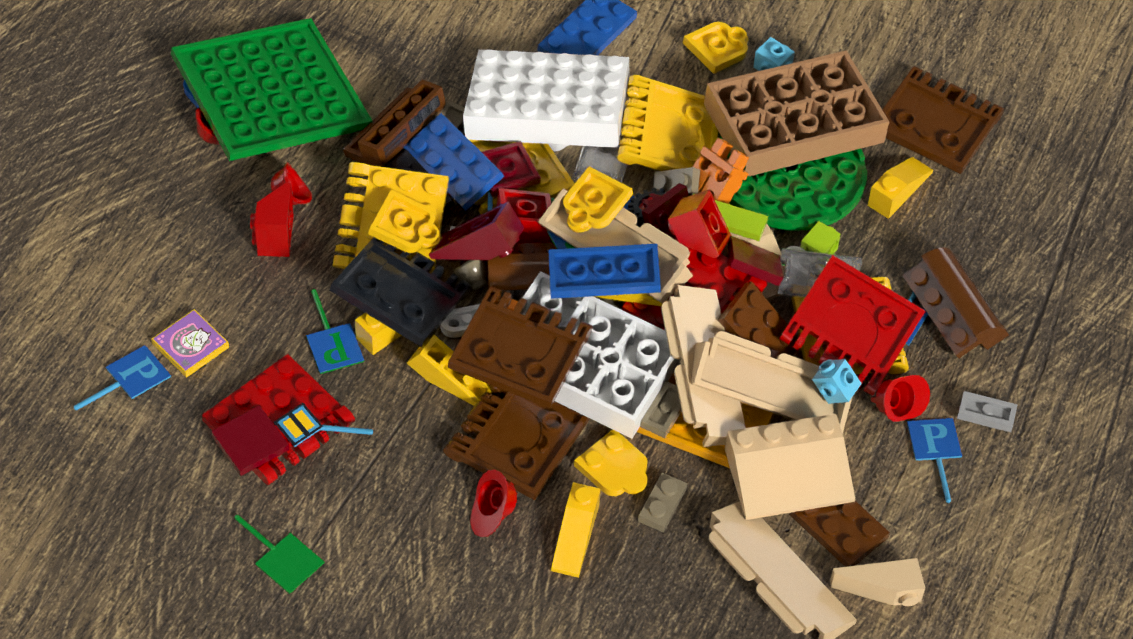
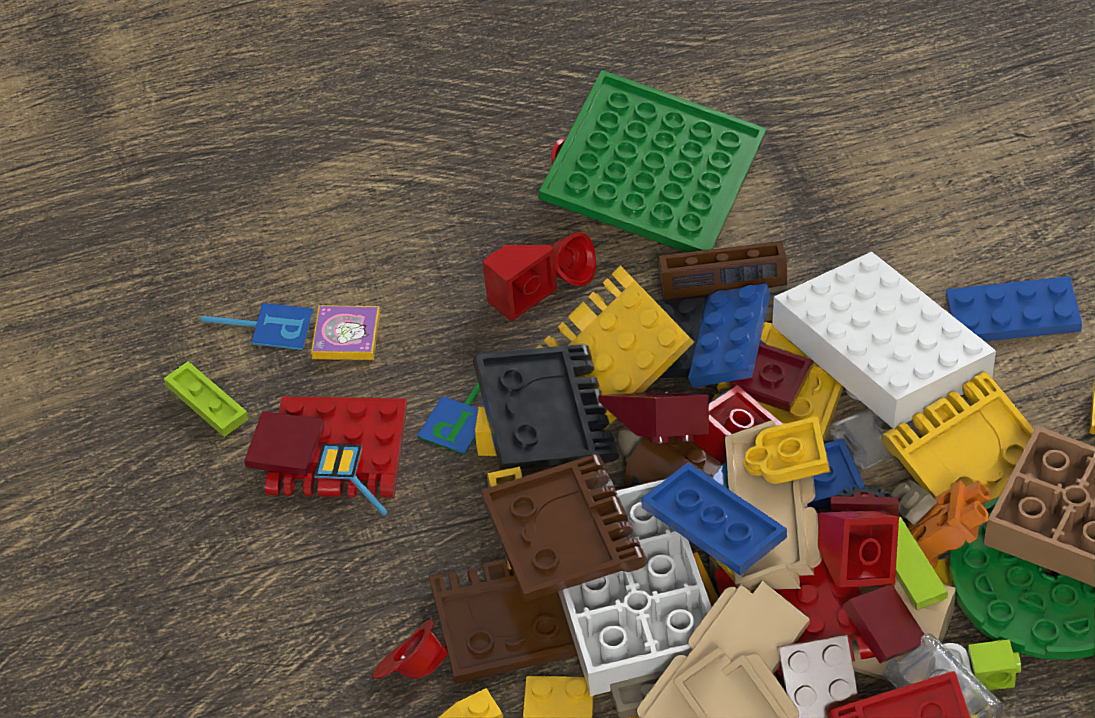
camera: 55 degrees right, 5 degrees down
(150, 456) = (206, 399): none -> lime plate
(288, 561) = (209, 569): green piece -> none
(405, 224) = (605, 353): yellow plate -> none

